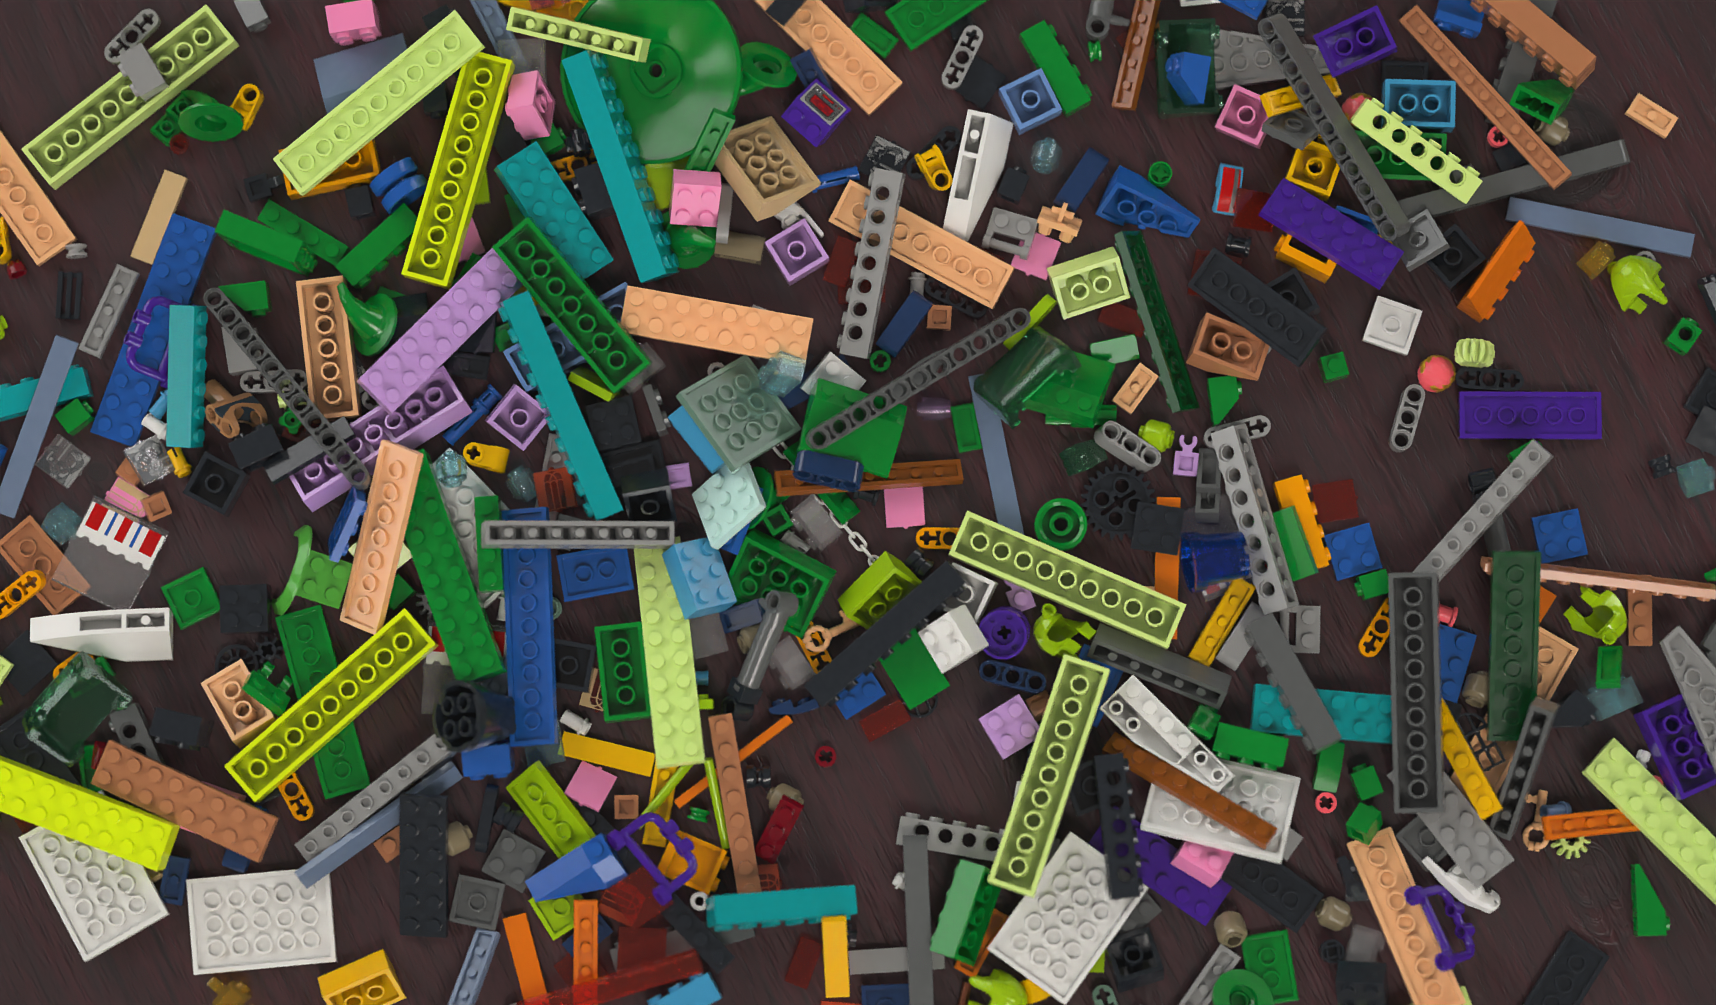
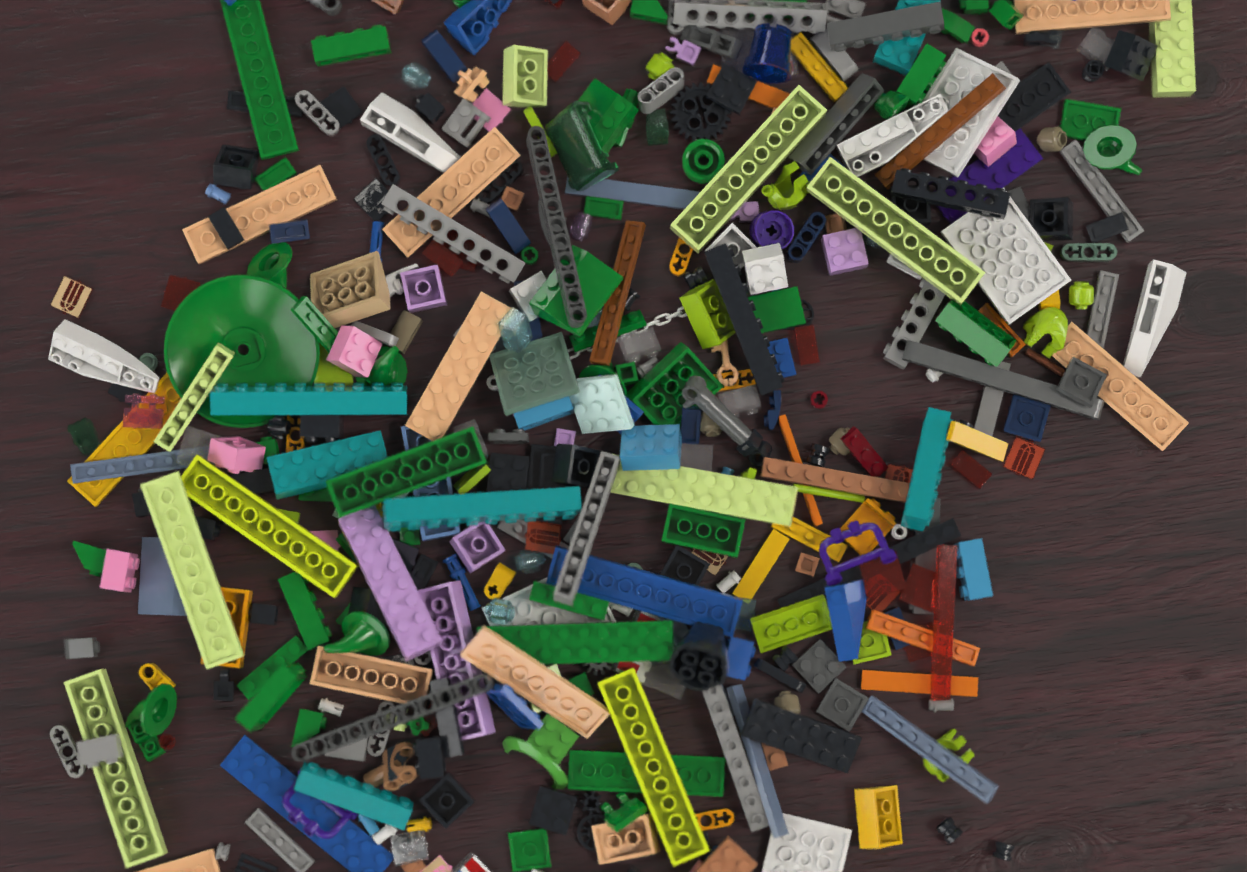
camera: 75 degrees left, 0 degrees up
(156, 506) = (447, 854): nougat plate -> none
(158, 216) = (219, 777): tan tile -> none
(279, 313) = (330, 707): none -> white pin
(399, 184) = (262, 577): blue wheel -> none
(590, 786) = (782, 586): bright pink piece -> none
(594, 573) = (618, 528): blue plate -> none
(667, 789) = (807, 532): lime bar -> none
(698, 814) = (831, 511): green bush -> none
(816, 113) = (320, 237): dark purple slope -> none
(828, 471) = (603, 319): dark blue beam -> none
(904, 507) = (648, 275): bright pink piece -> none
(934, 167) = (392, 162): yellow piece -> none
(1030, 101) = (370, 72): medium blue brick -> none
(1094, 51) = (348, 12): green bush -> none
(1116, 349) = (583, 75): slope -> none
(1135, 388) = (618, 70): light nougat plate -> none
(1157, 321) = (572, 35): dark green plate -> none
(1333, 913) = (1065, 60): dark tan head -> none

